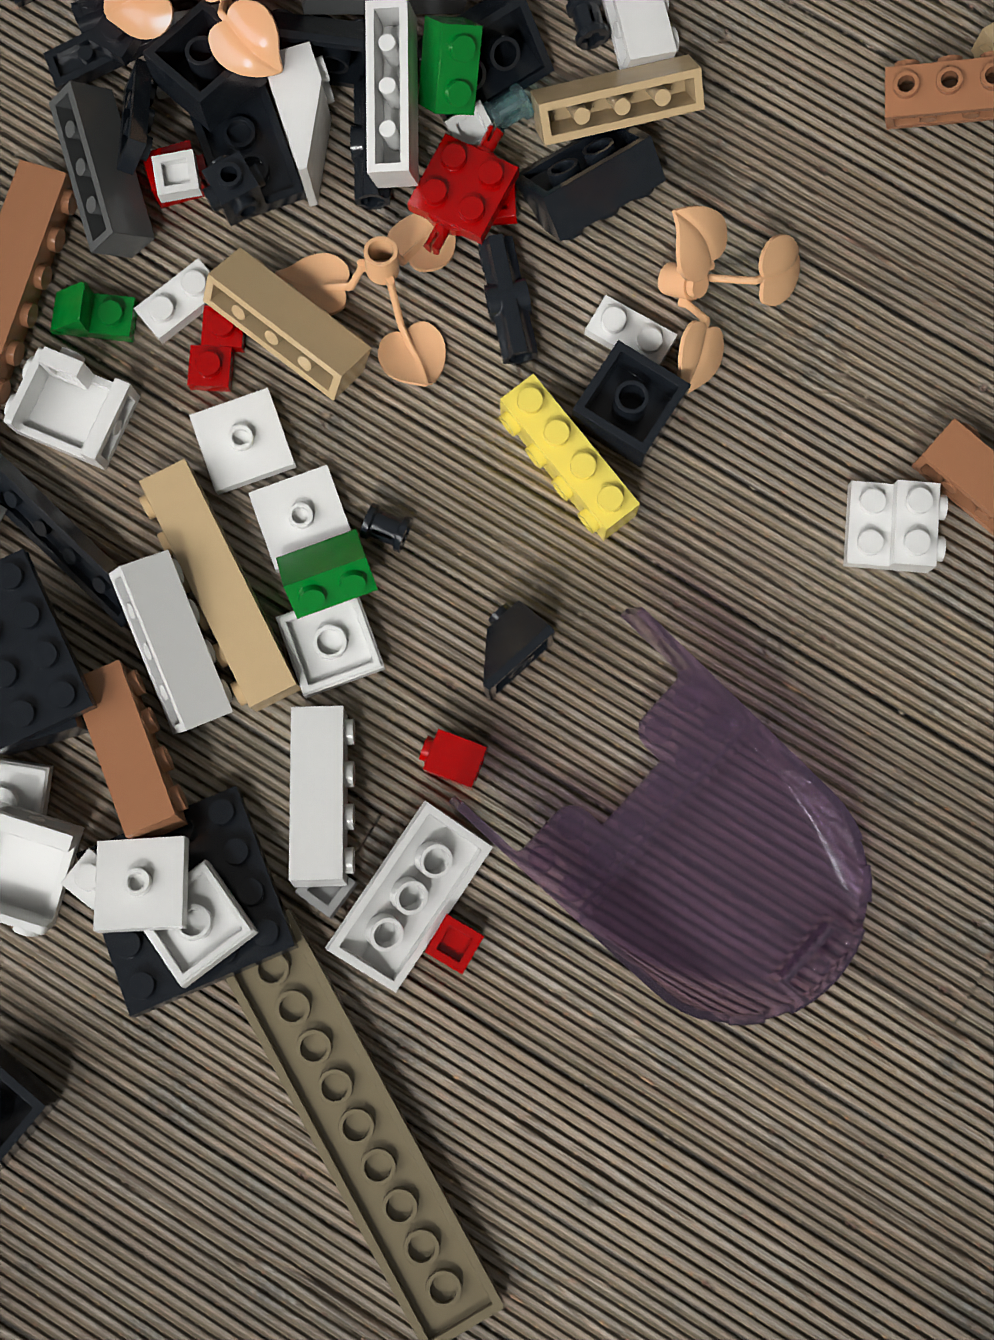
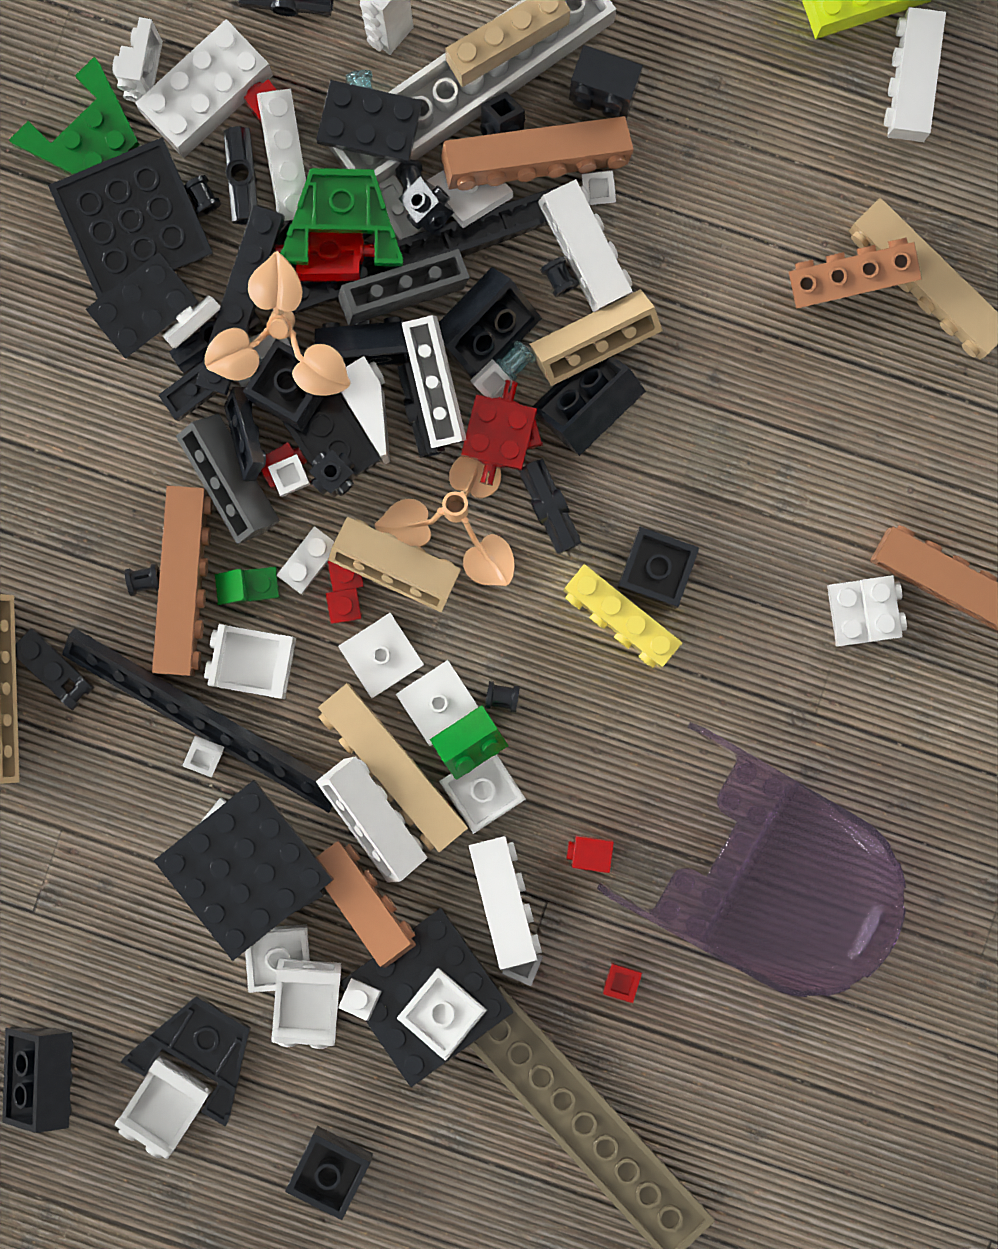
camera: 15 degrees left, 5 degrees up
(66, 366) = (242, 632): white plate -> none
(141, 884) = (398, 996): white plate -> none
(409, 897) = (582, 957): white slope -> none
(449, 65) = (470, 348): green brick -> none
(512, 645) = (613, 764): black slope -> none
(618, 322) = (645, 510): white plate -> none
(700, 241) = (680, 461): light nougat plant -> none

